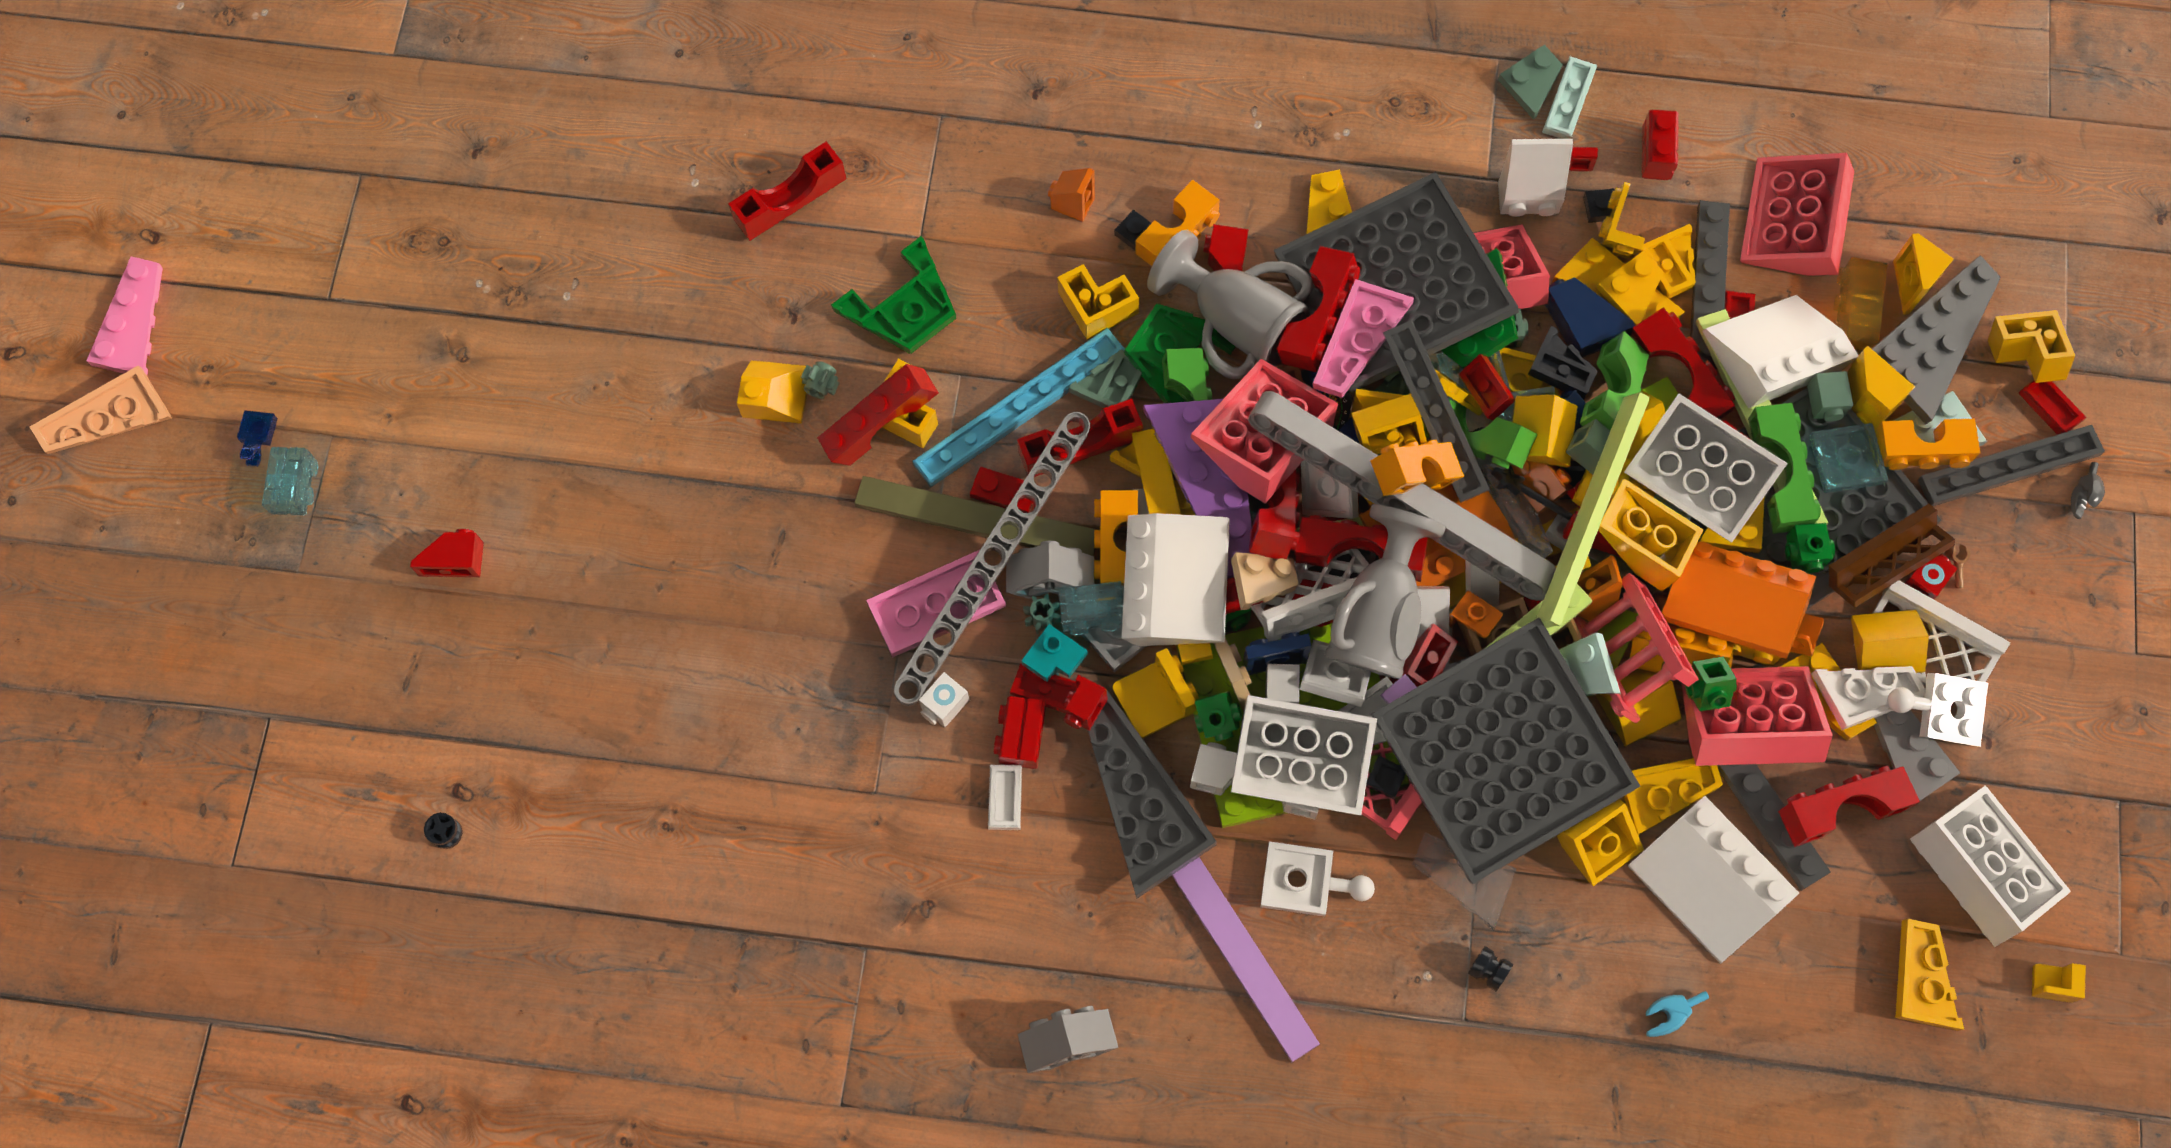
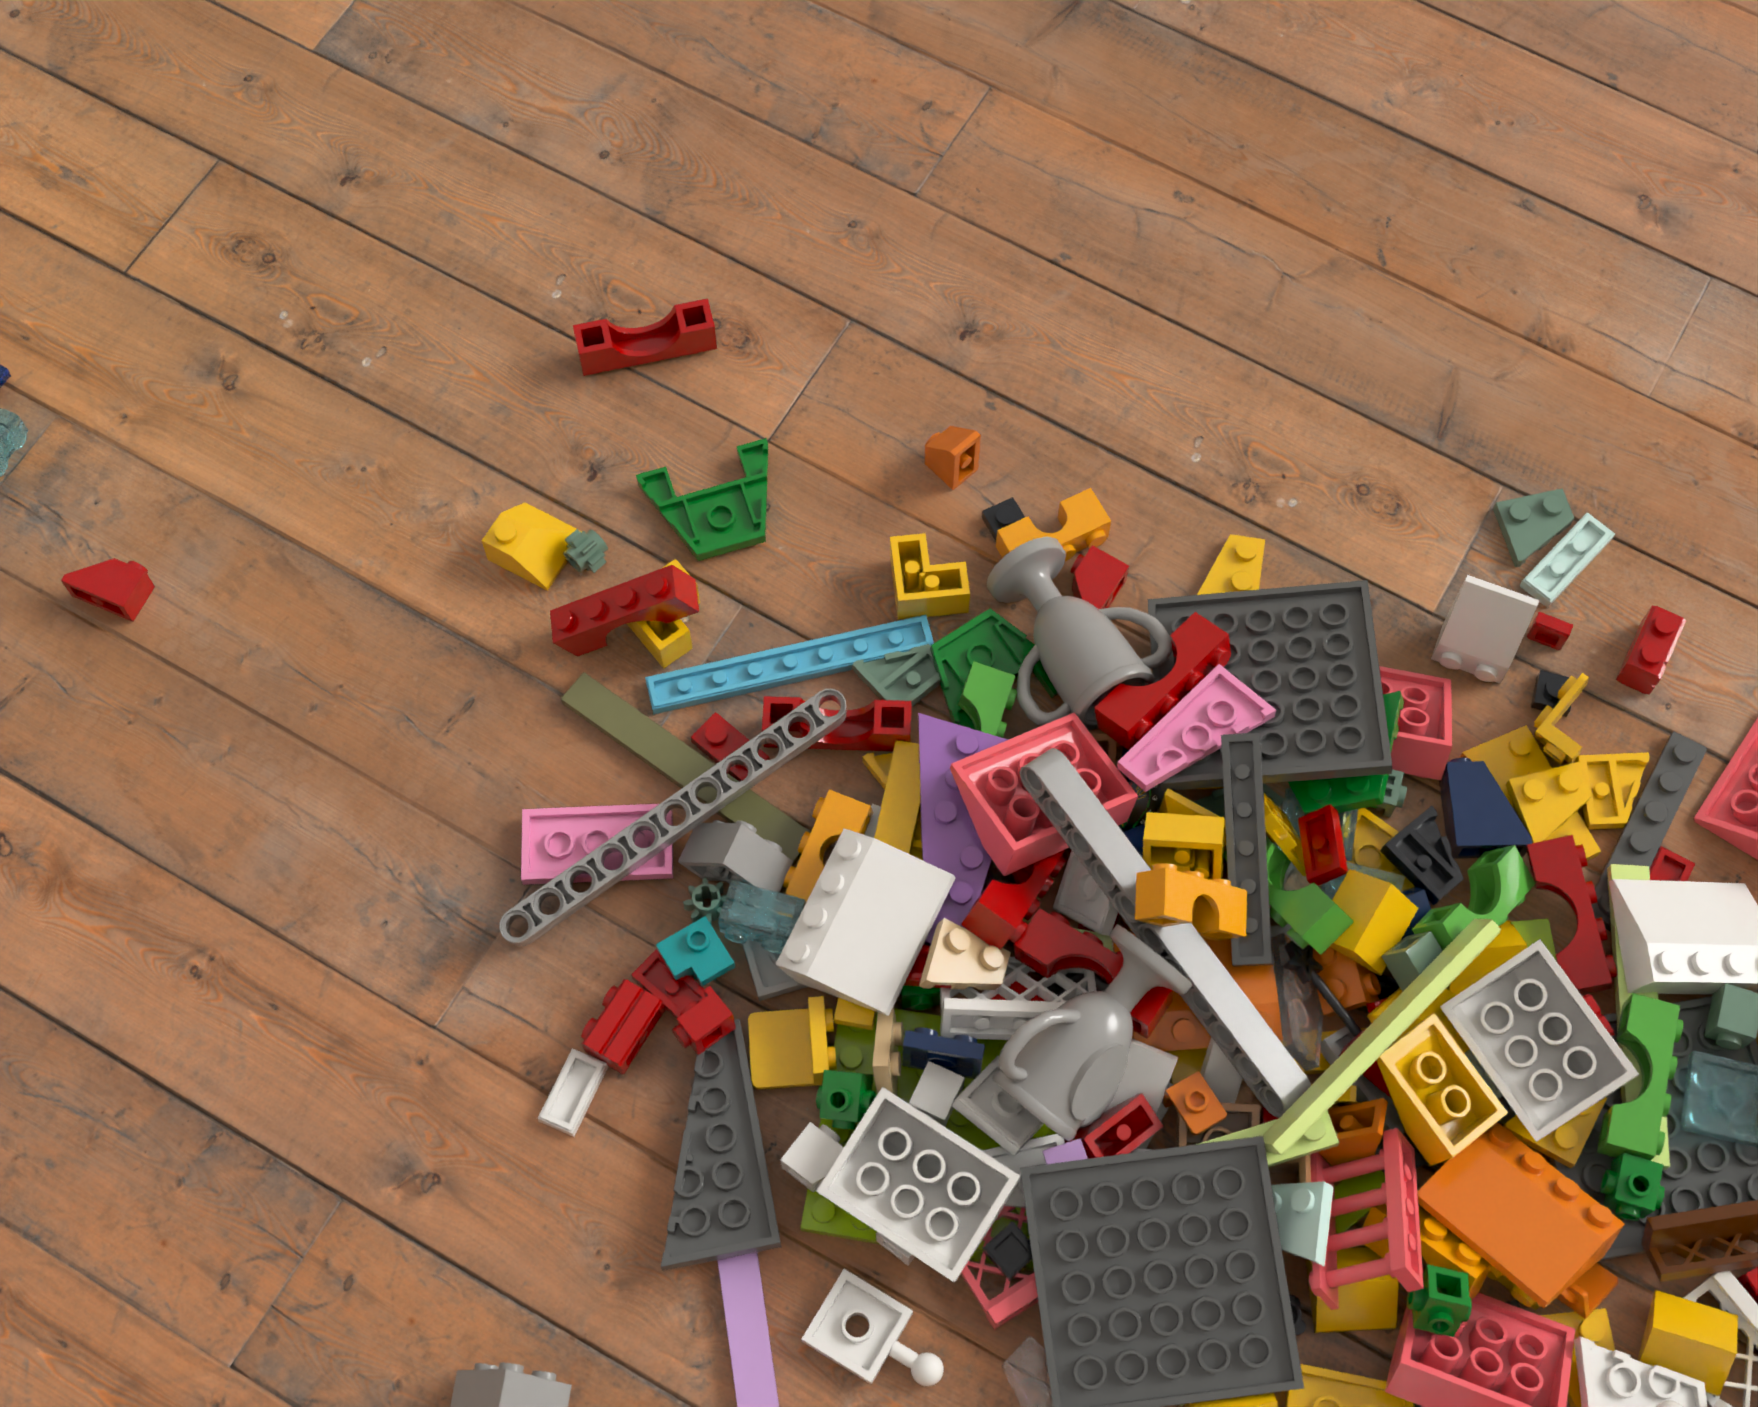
camera: 20 degrees right, 5 degrees down
(943, 700) = (553, 955): white brick -> none

